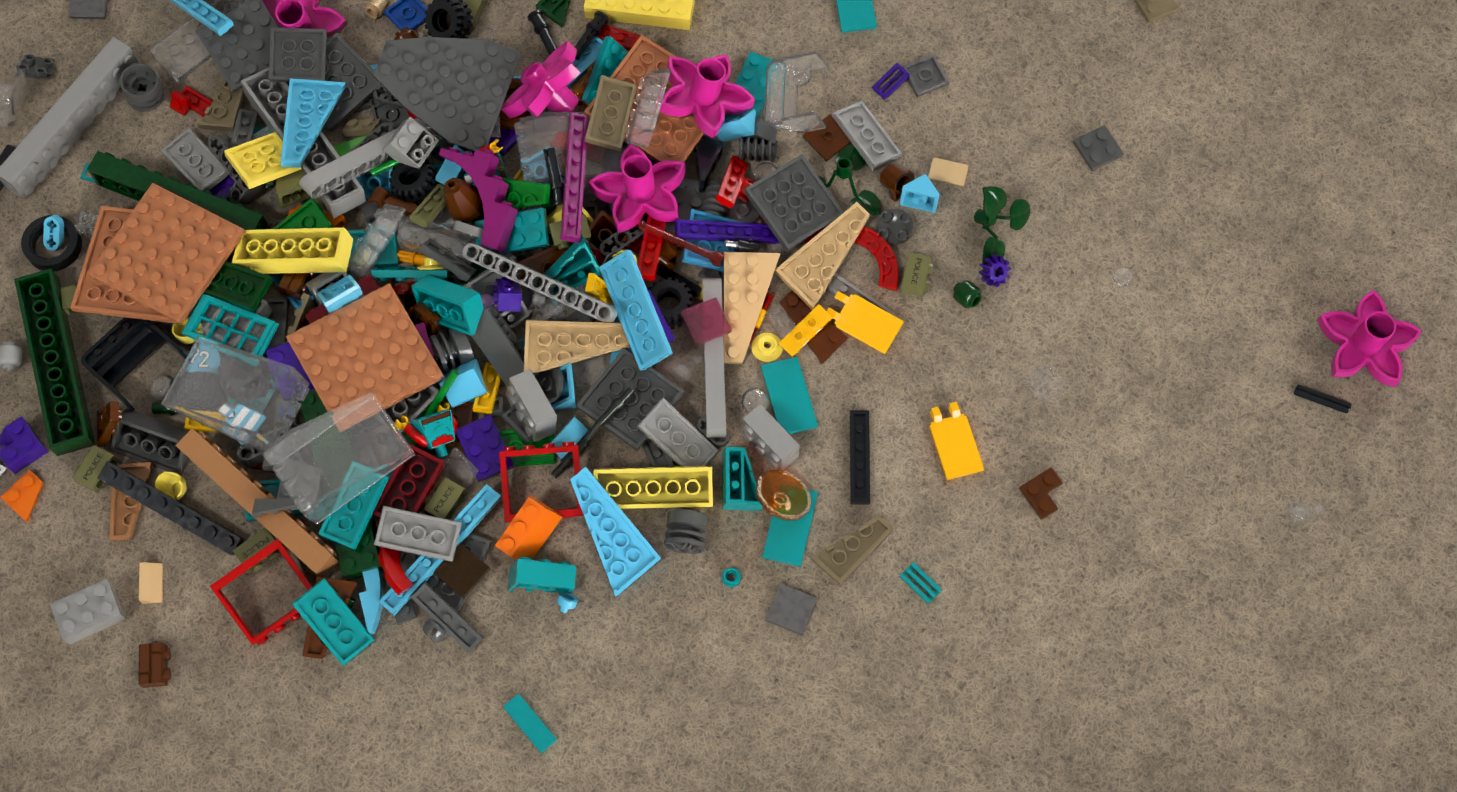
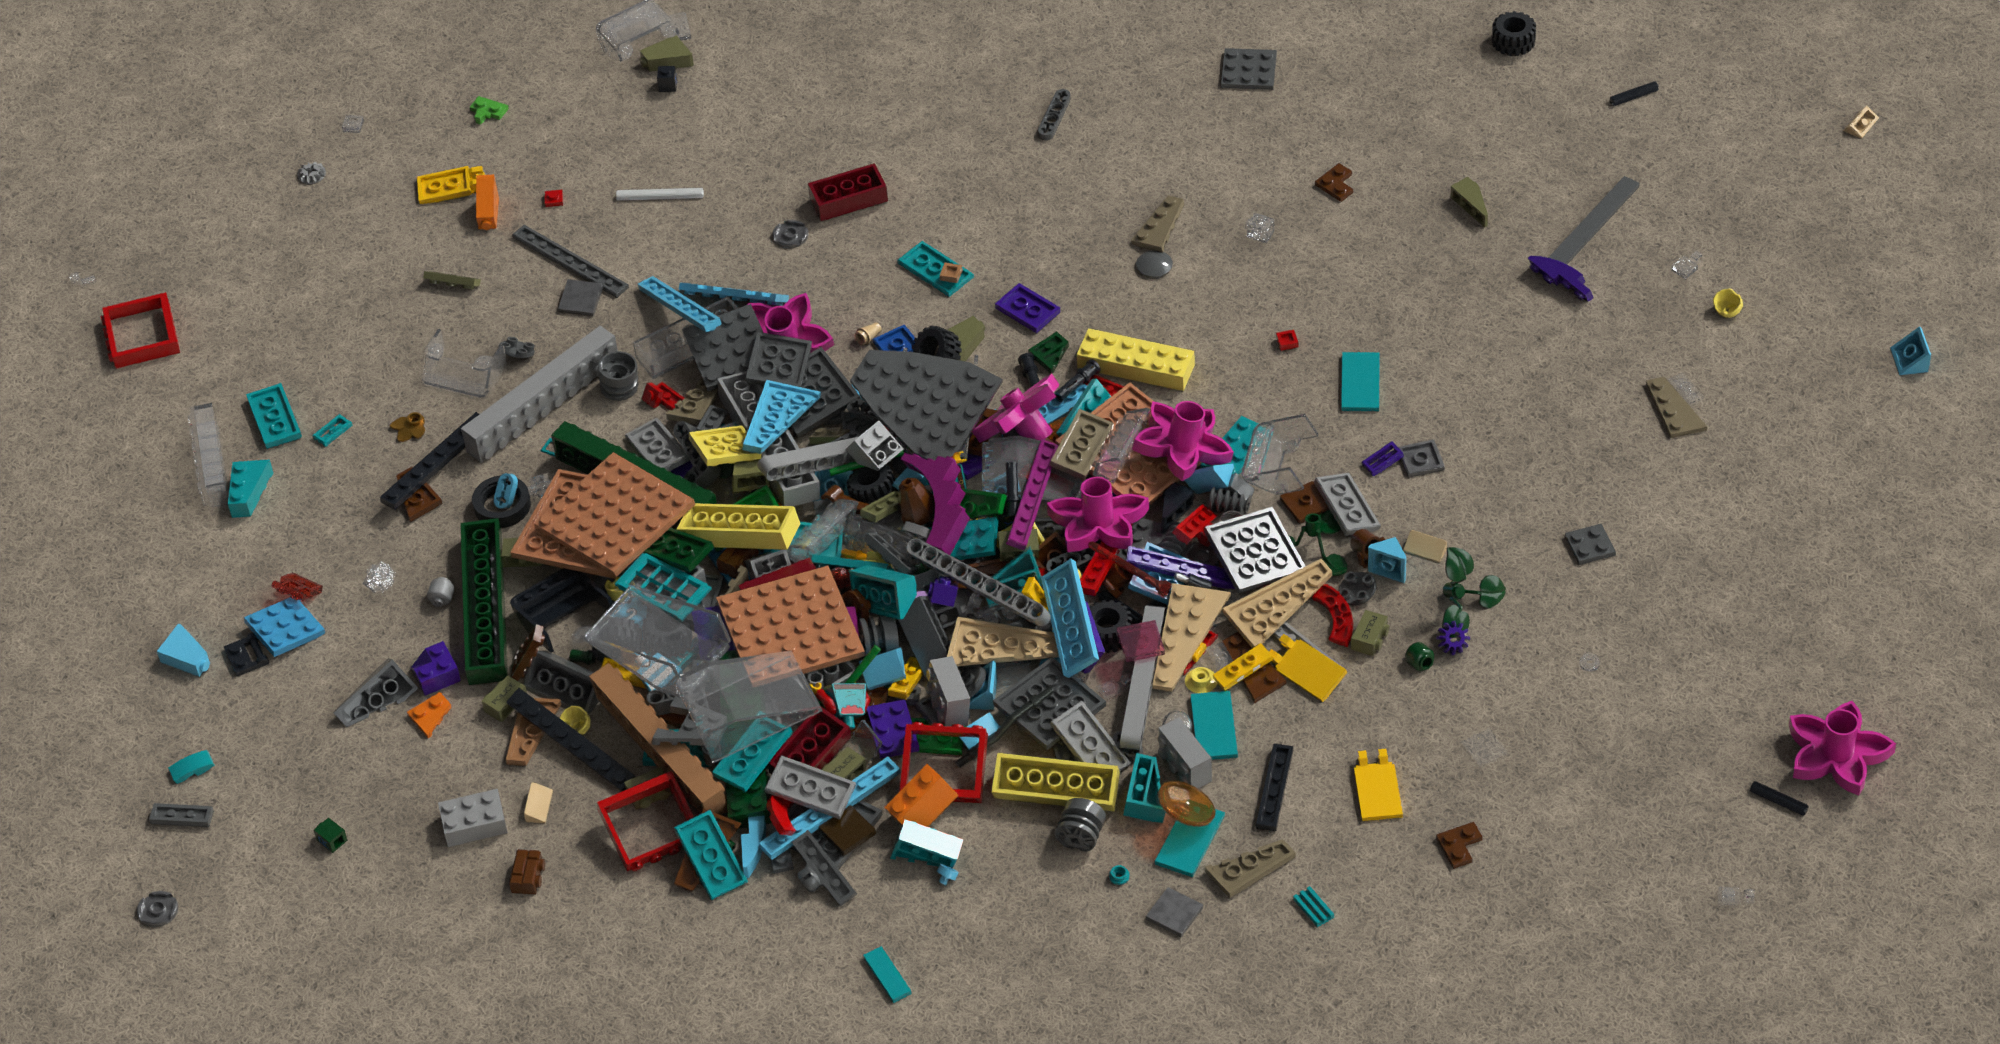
camera: 15 degrees right, 20 degrees down
(340, 294) = (778, 569): medium azure slope -> none
(618, 542) = (1009, 824): medium azure wing -> none

